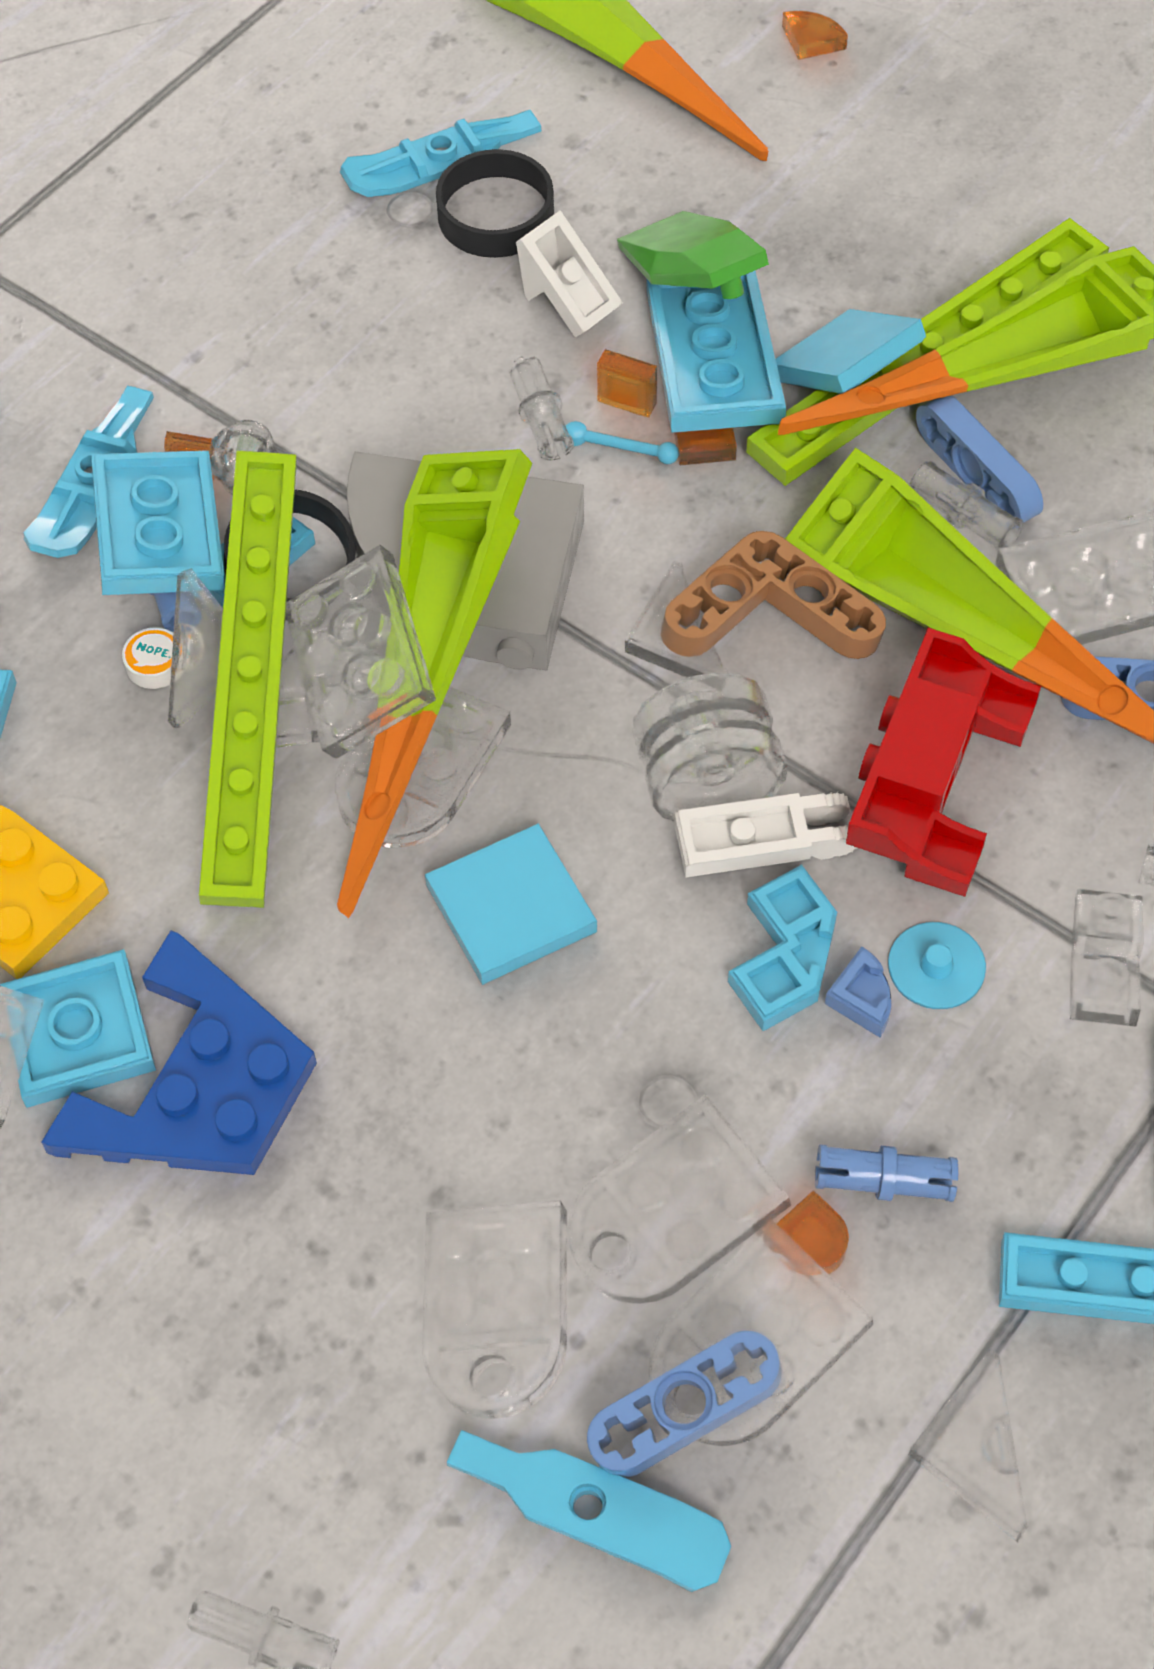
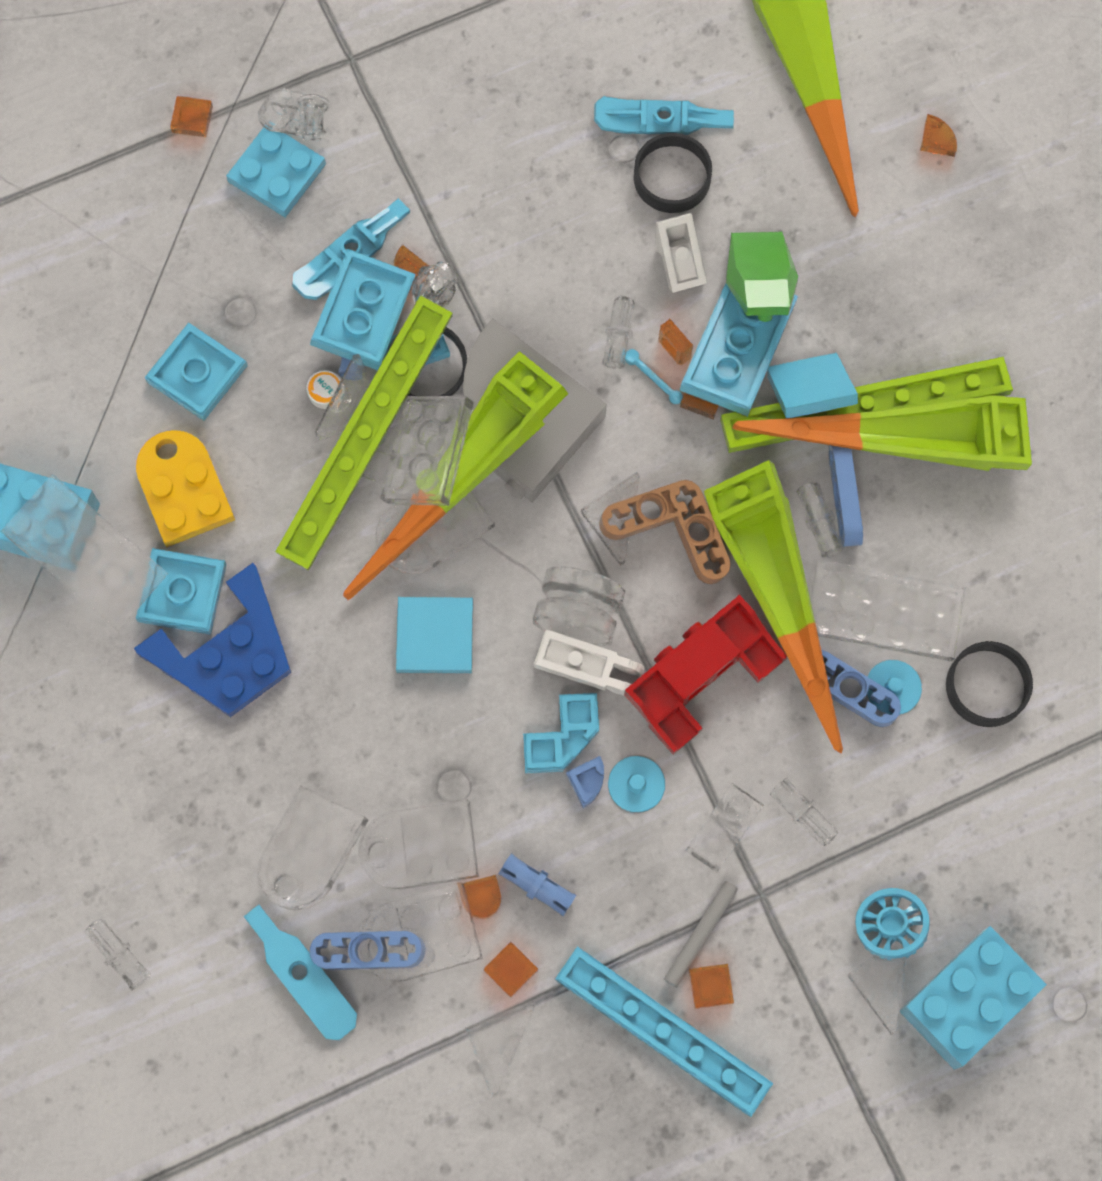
camera: 25 degrees right, 15 degrees up
(923, 1324) = (510, 969): none -> clear orange tile

